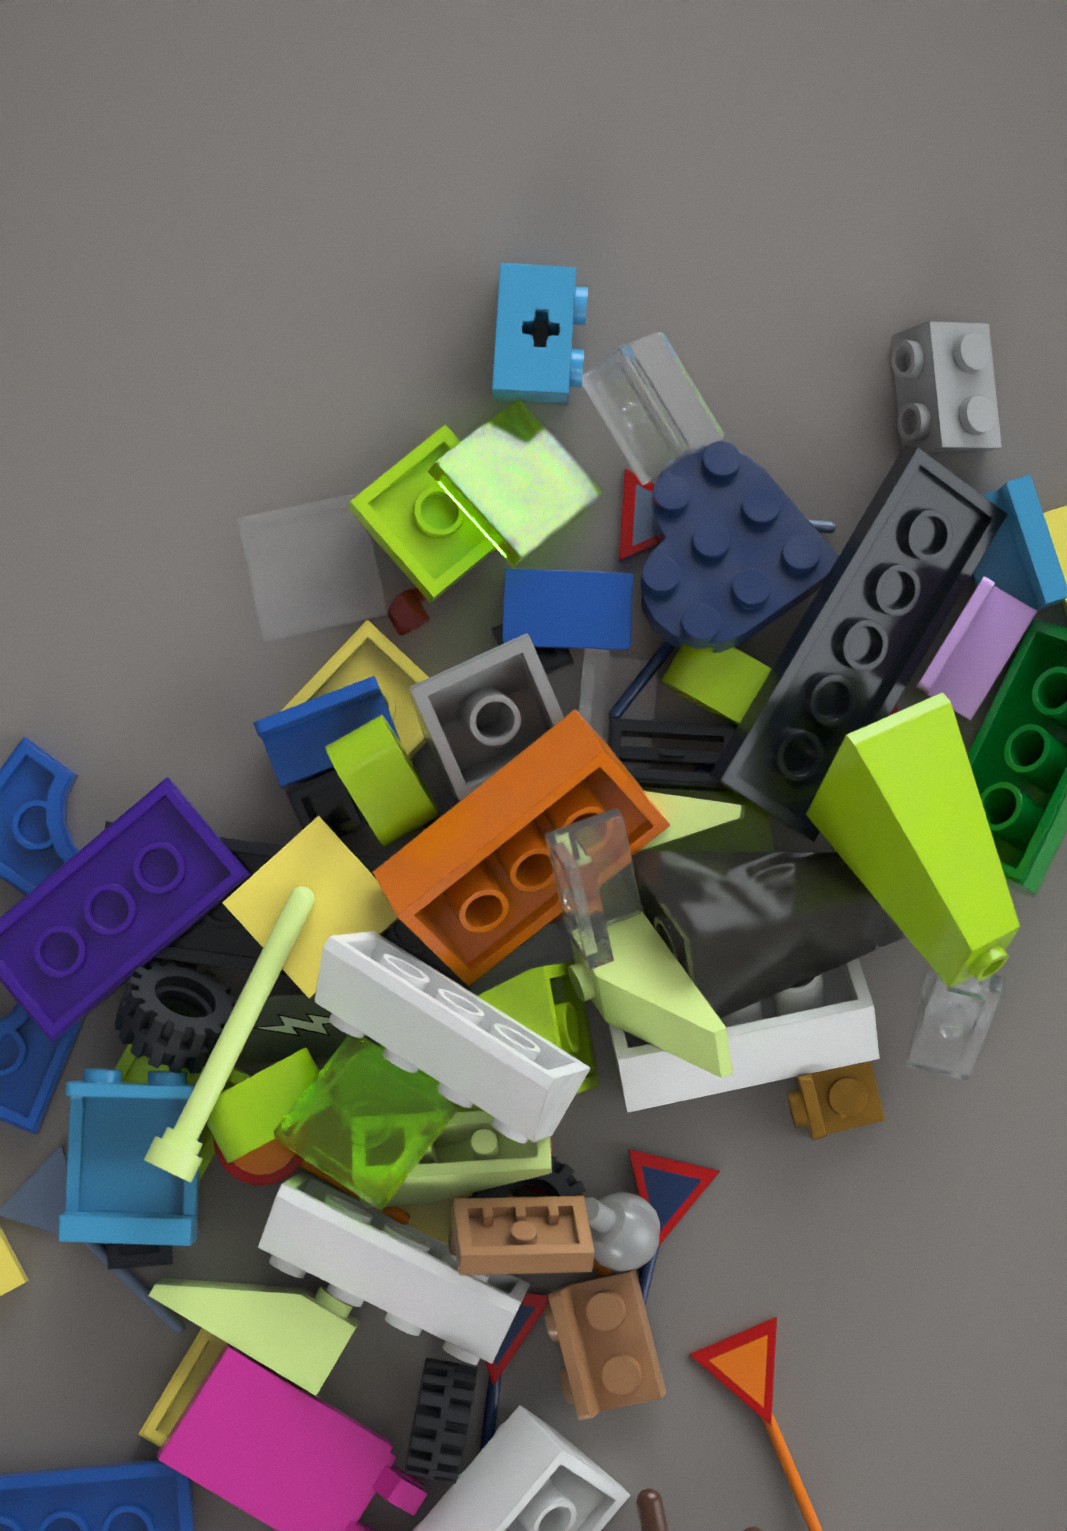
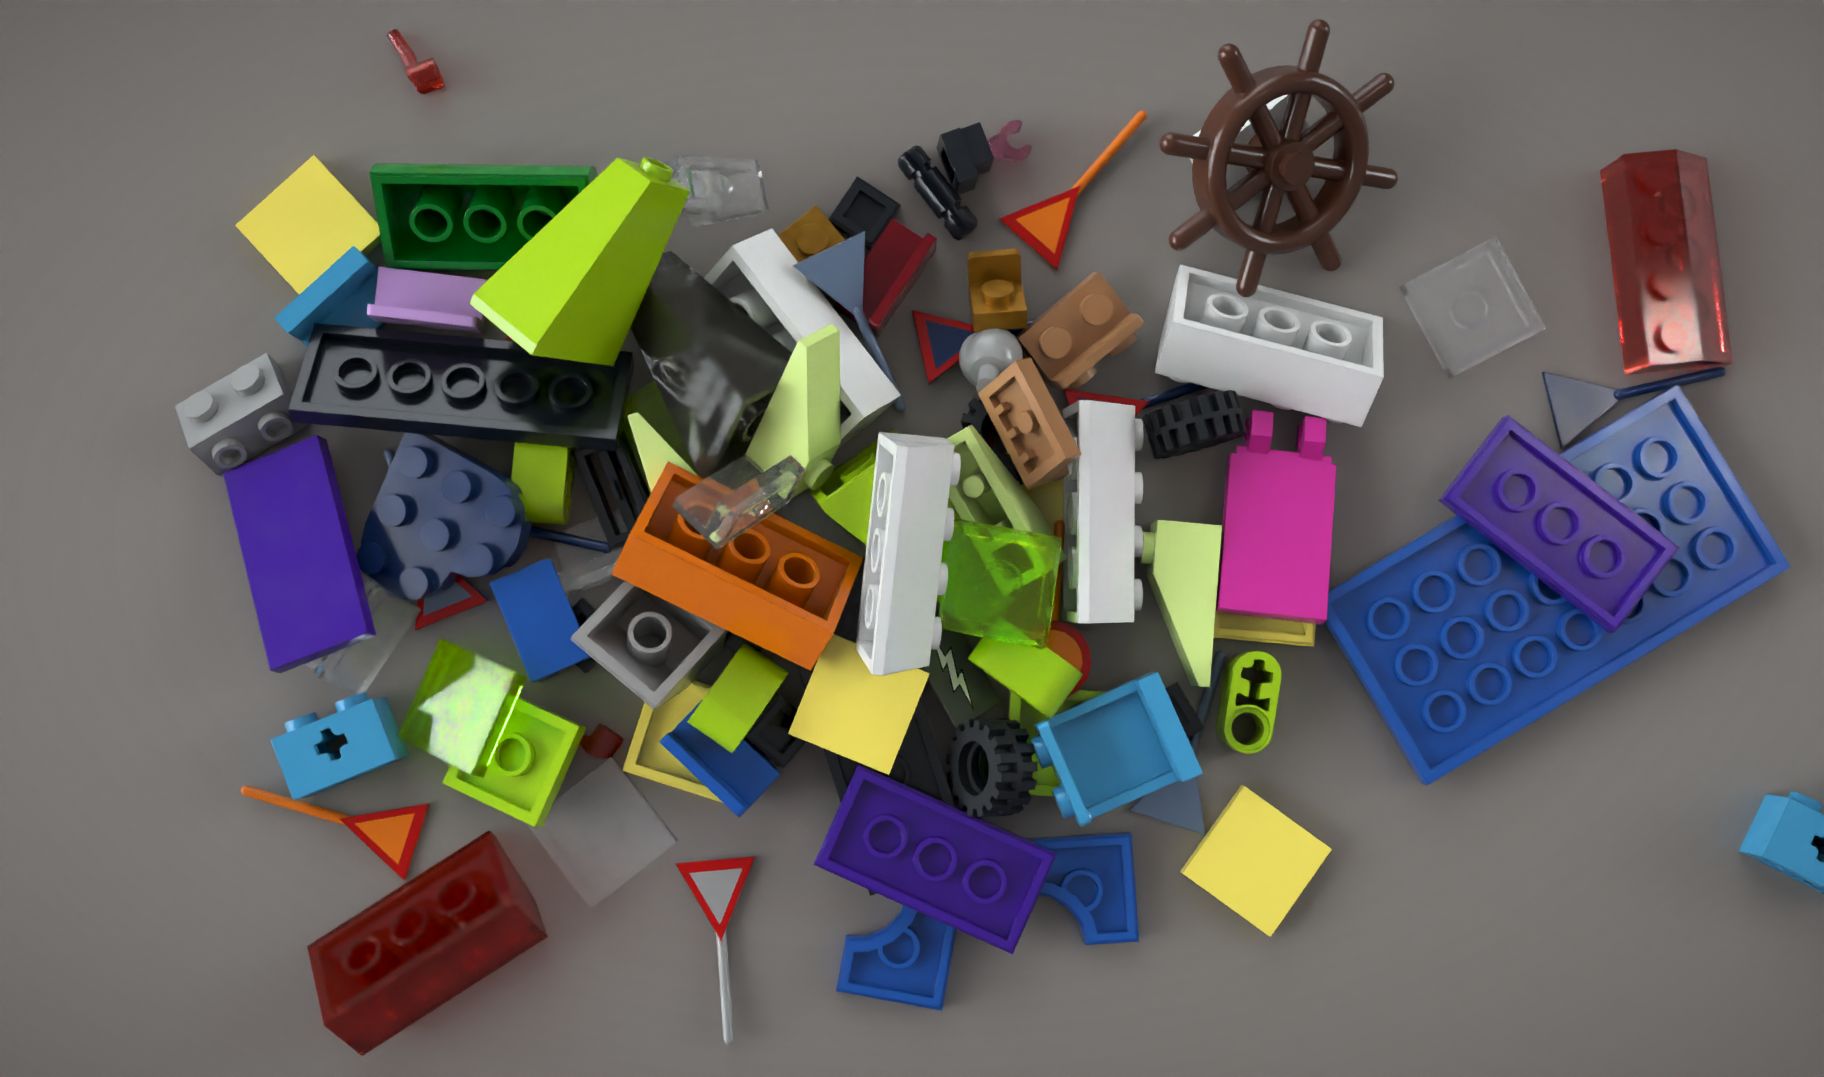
camera: 120 degrees left, 0 degrees up
(115, 1354) = (1266, 691): none -> lime beam
(179, 1146) = (1087, 715): yellowish green piece -> none
(191, 660) = (717, 890): none -> piece
(285, 329) = (423, 944): none -> clear red slope
(422, 341) = (387, 833): none -> piece
(694, 1273) = (996, 290): none -> pearl gold bracket
(762, 385) = (299, 554): none -> dark purple tile
(769, 1158) = (891, 272): none -> dark red panel
(788, 1109) = (841, 275): none -> sand blue piece
(837, 1262) = (937, 192): none -> black axle
(851, 1169) = (864, 210): none -> black tile
(863, 1320) = (969, 153): none -> black piece

